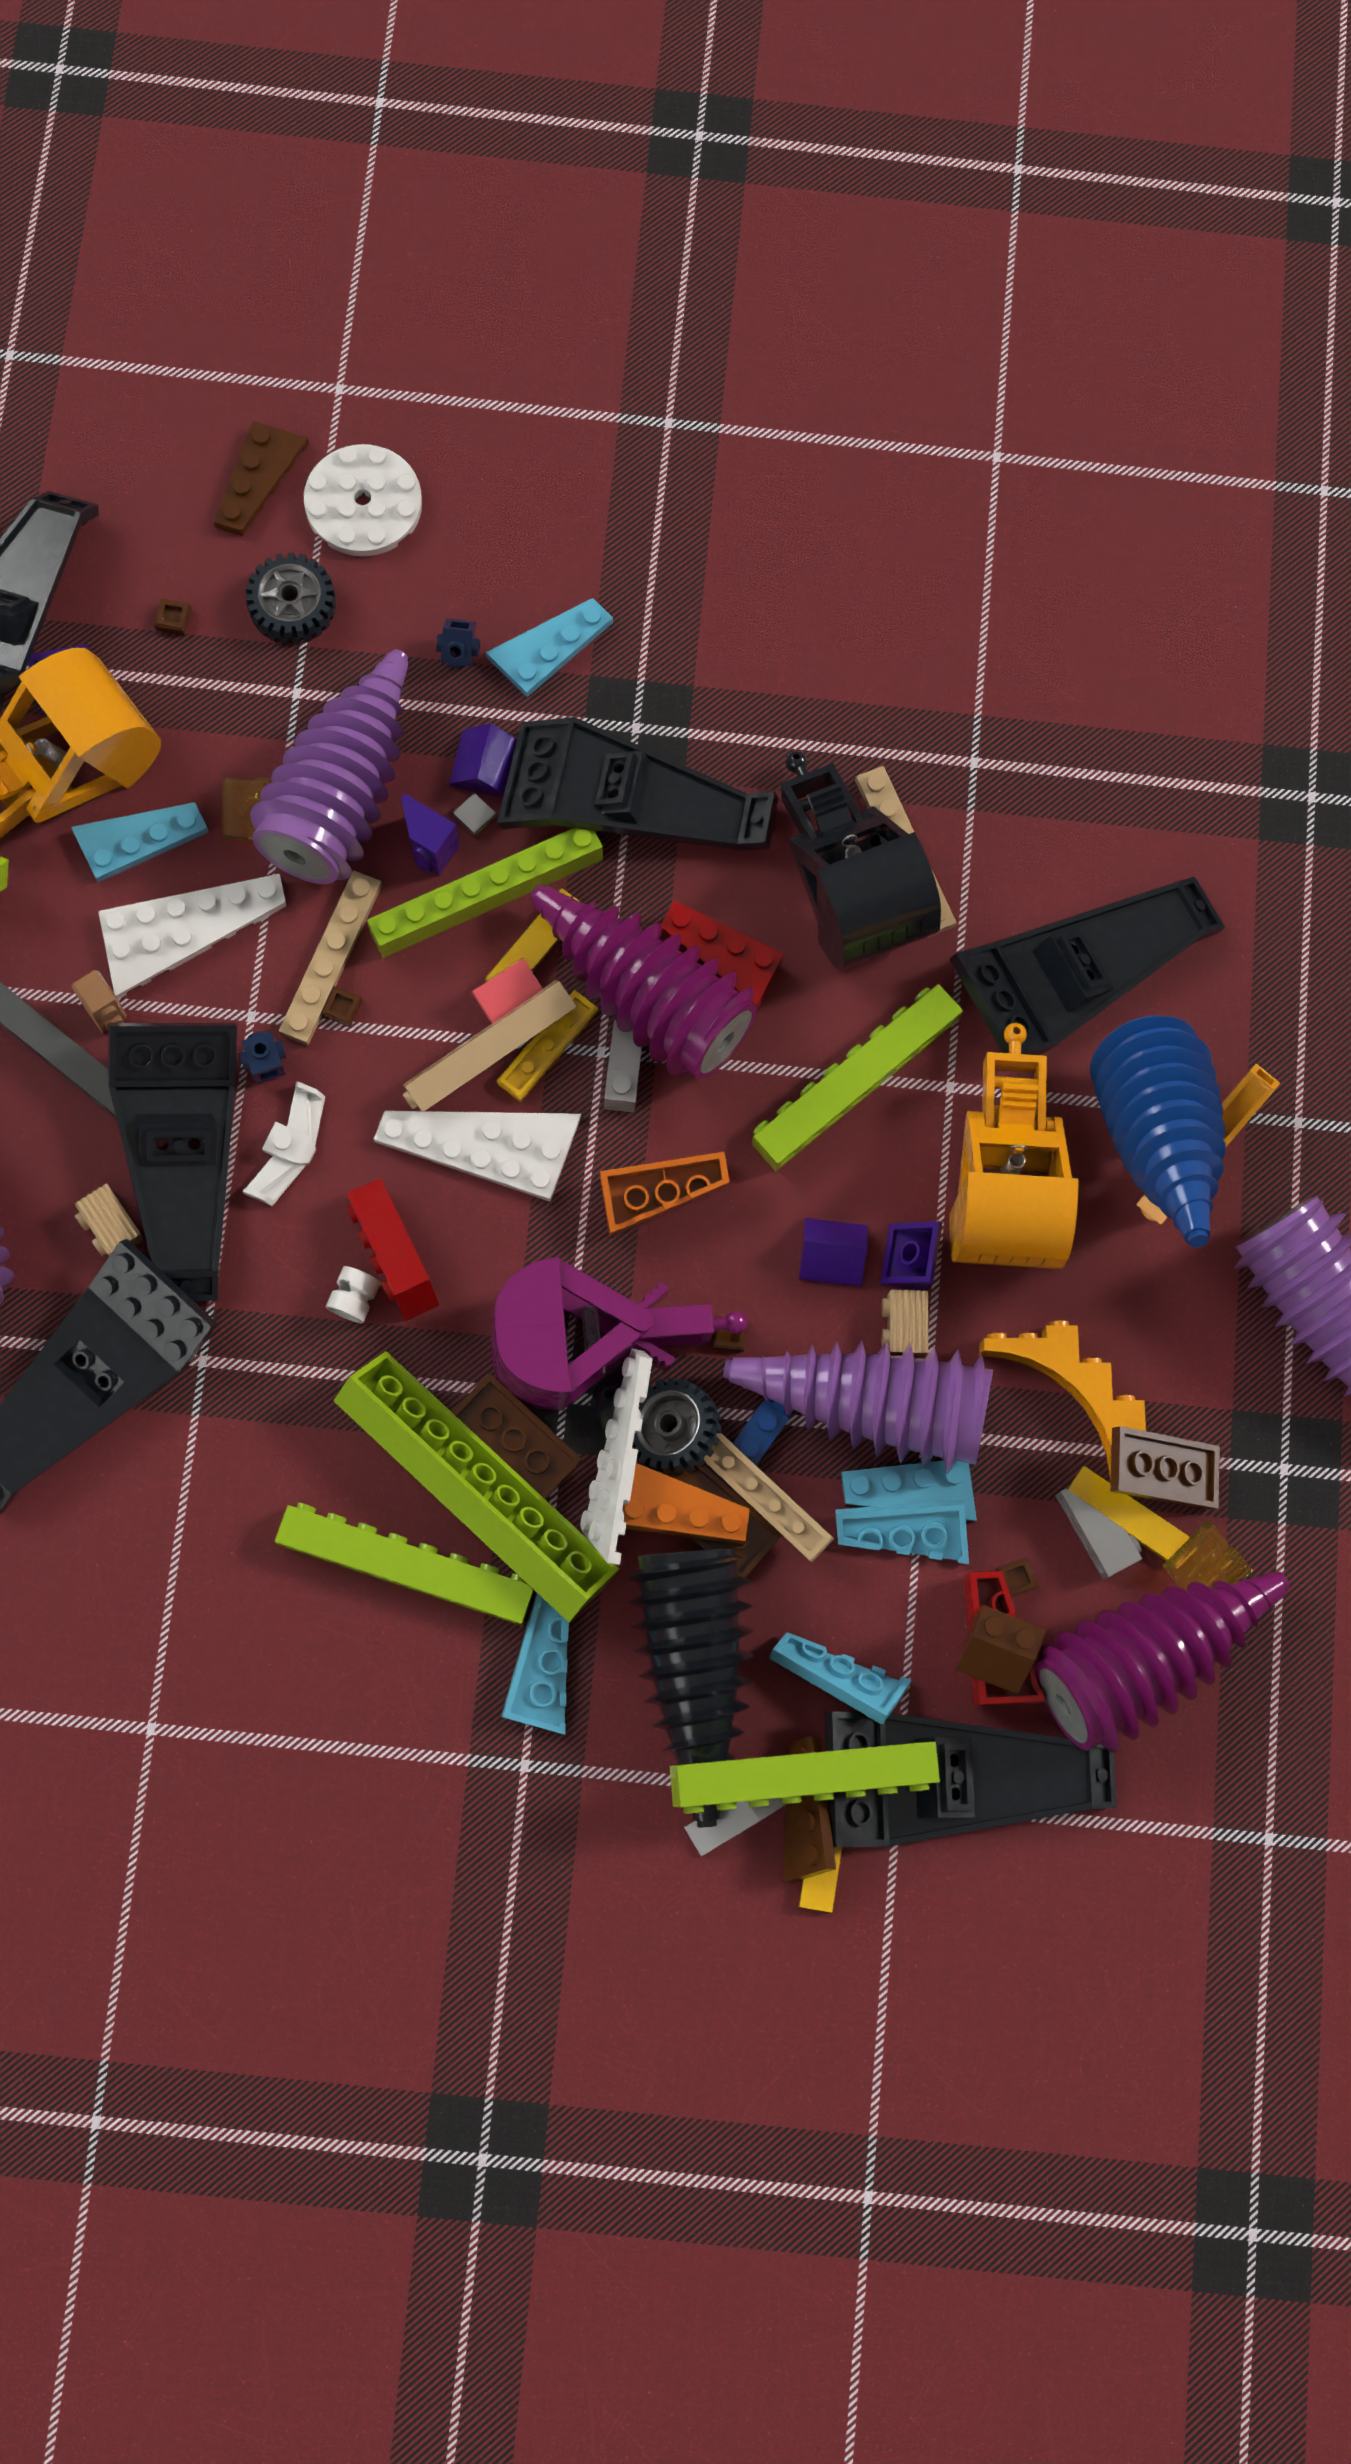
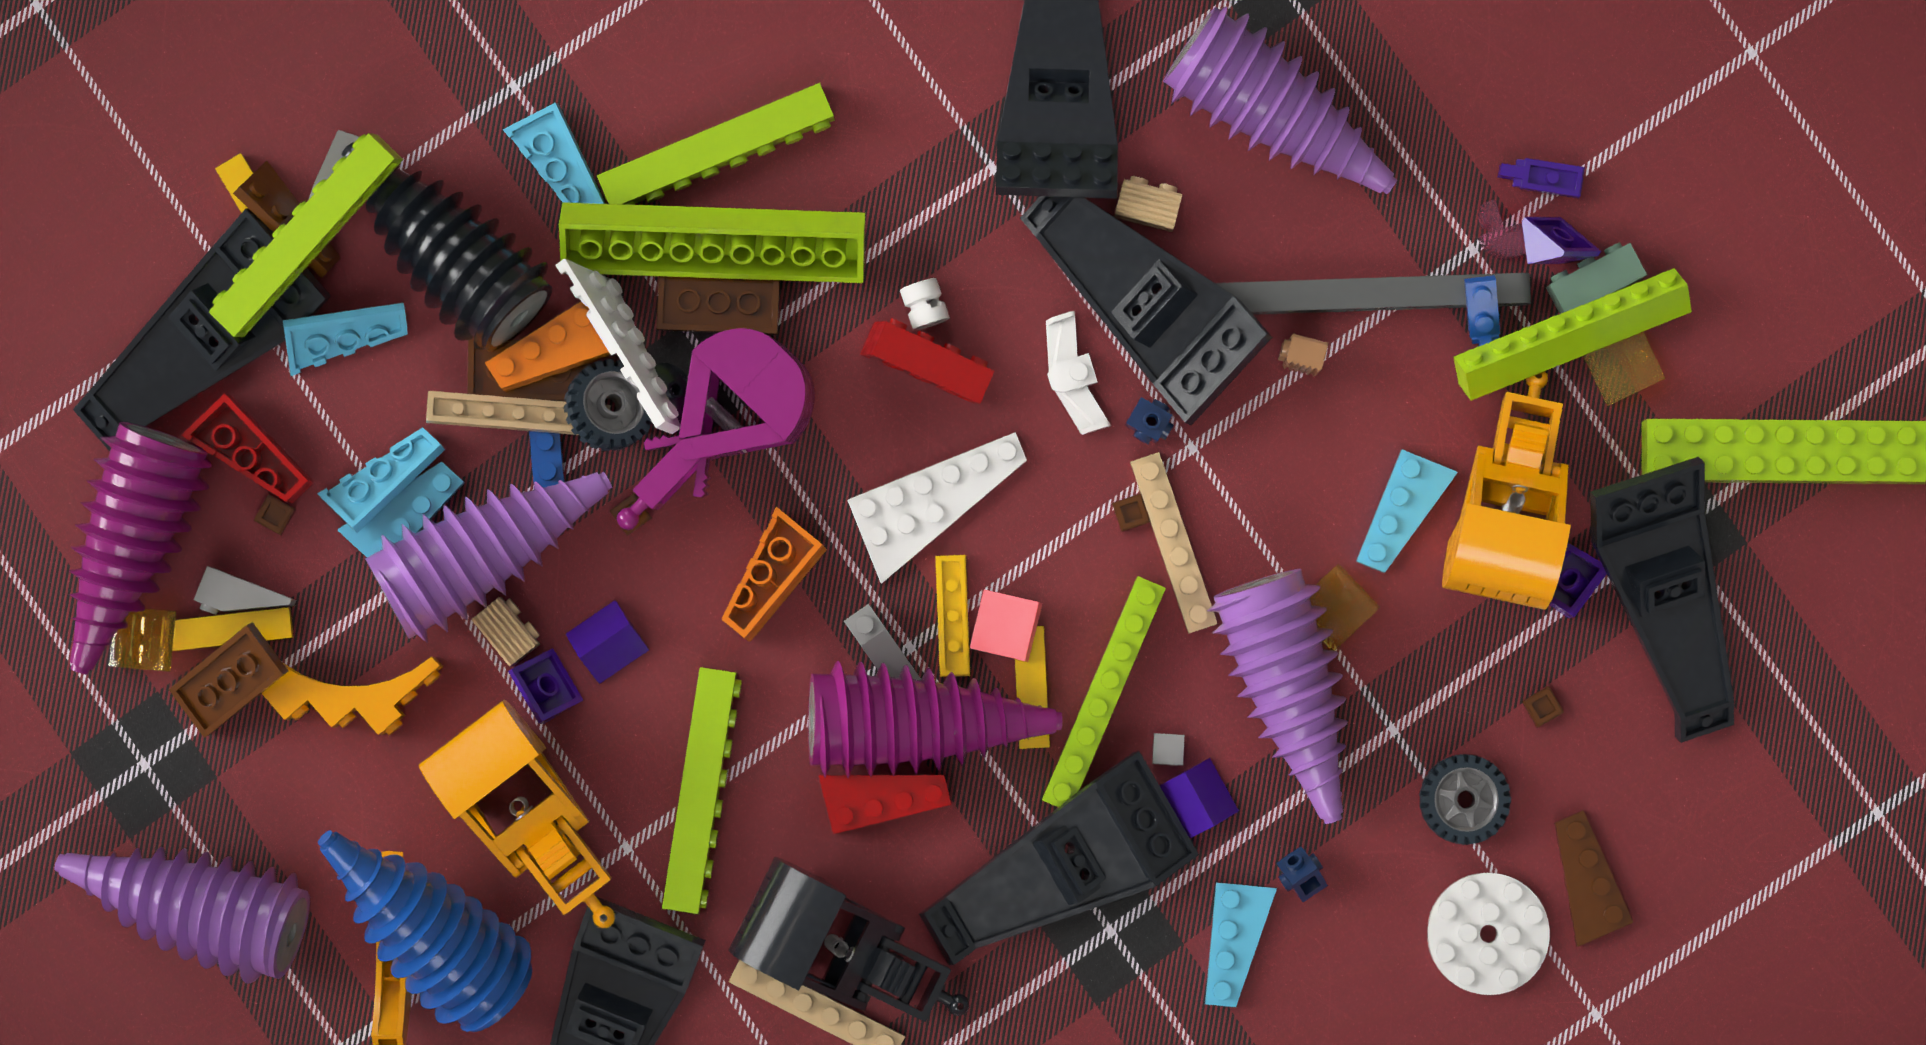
camera: 150 degrees right, 10 degrees up
(171, 930) = (1312, 455): white wing -> none
(430, 836) = (1181, 693): dark purple slope -> none
(488, 1046) = (990, 571): tan brick -> none
(1000, 1649) = (241, 441): reddish brown slope -> none

